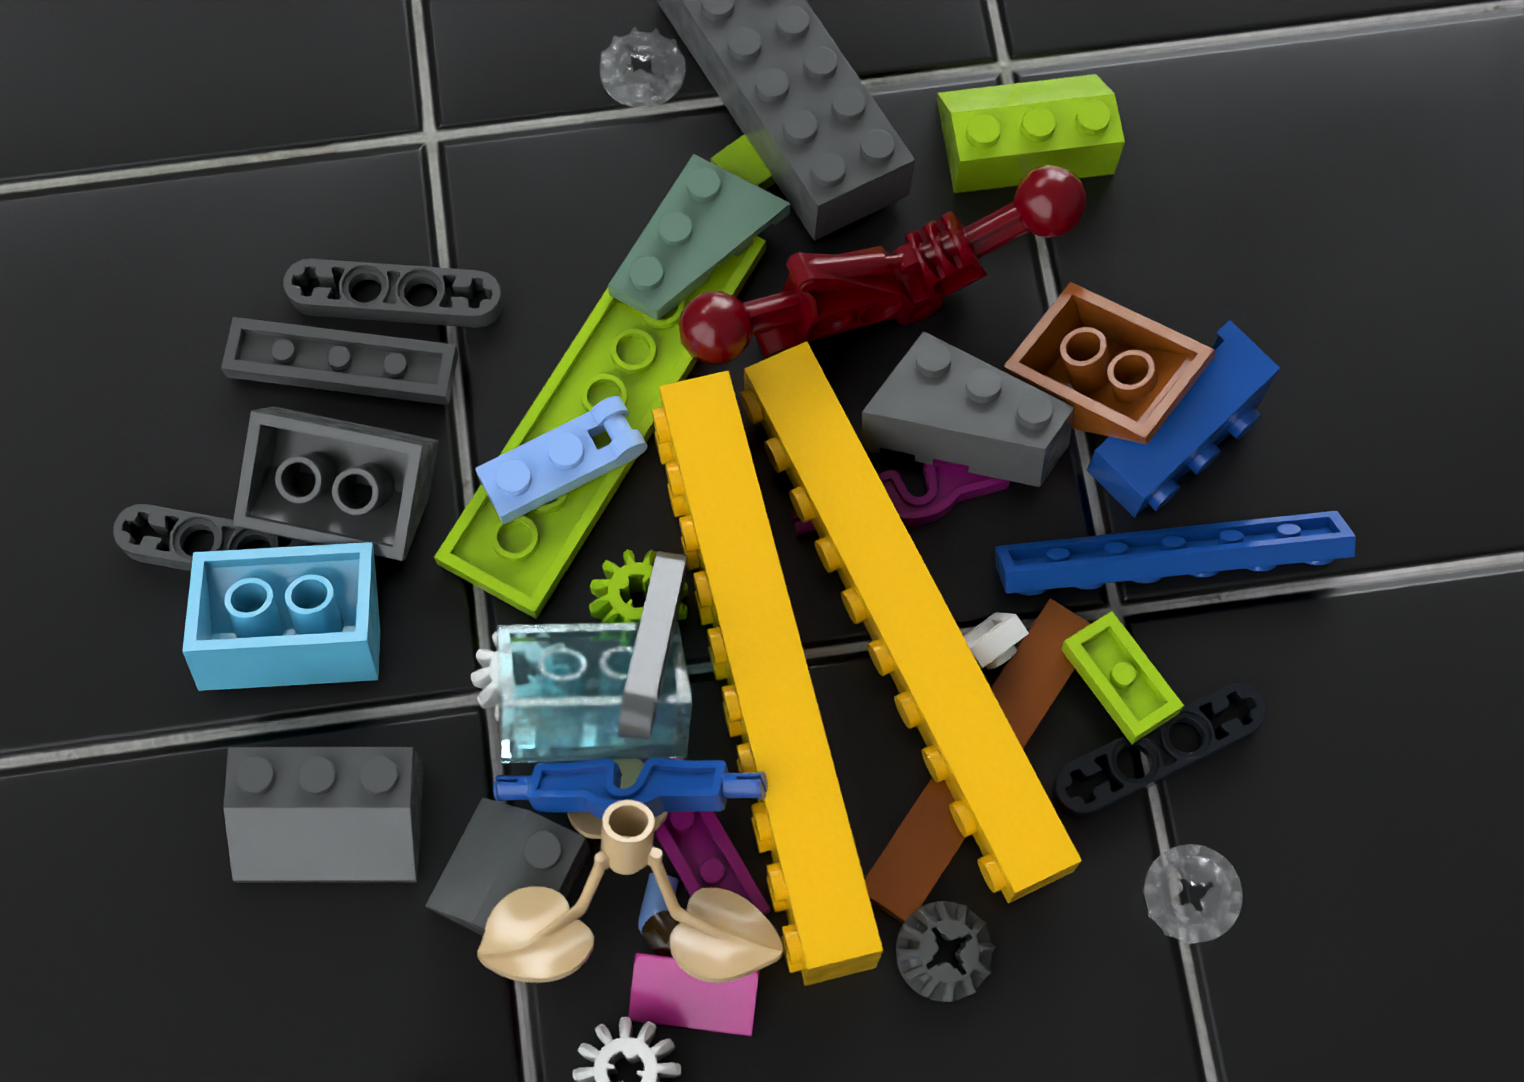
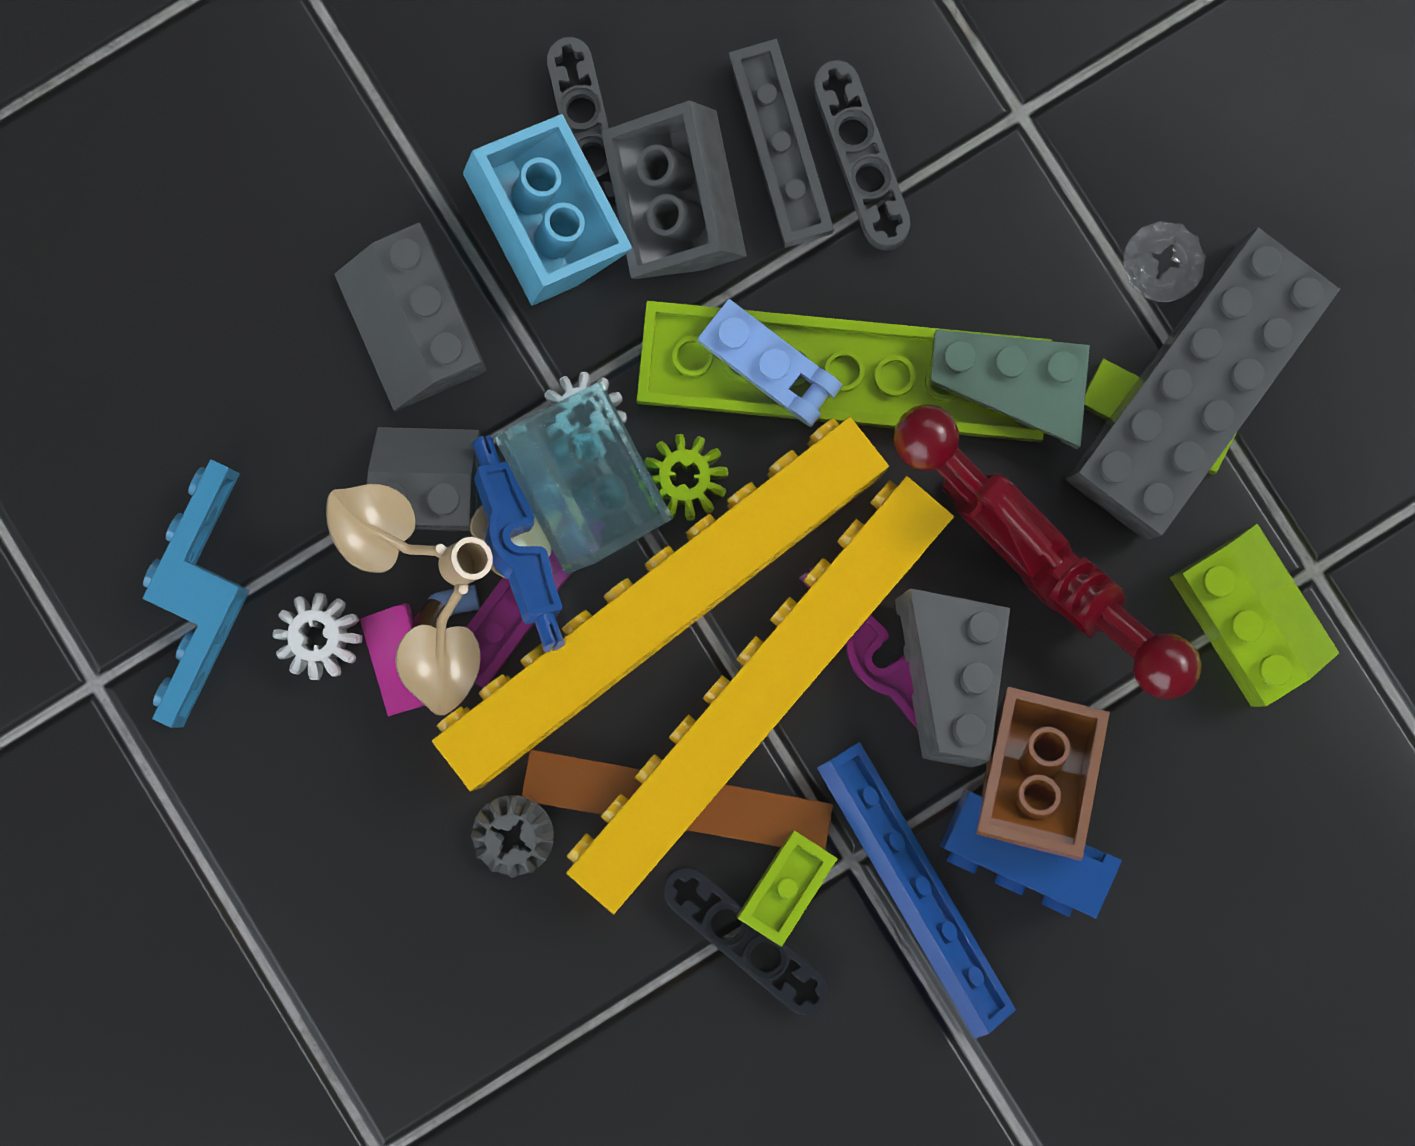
camera: 70 degrees right, 15 degrees up
(652, 646) = (628, 511): beam -> none
(995, 638) = (773, 771): white plate -> none
(1198, 866) = (642, 1034): clear gear -> none

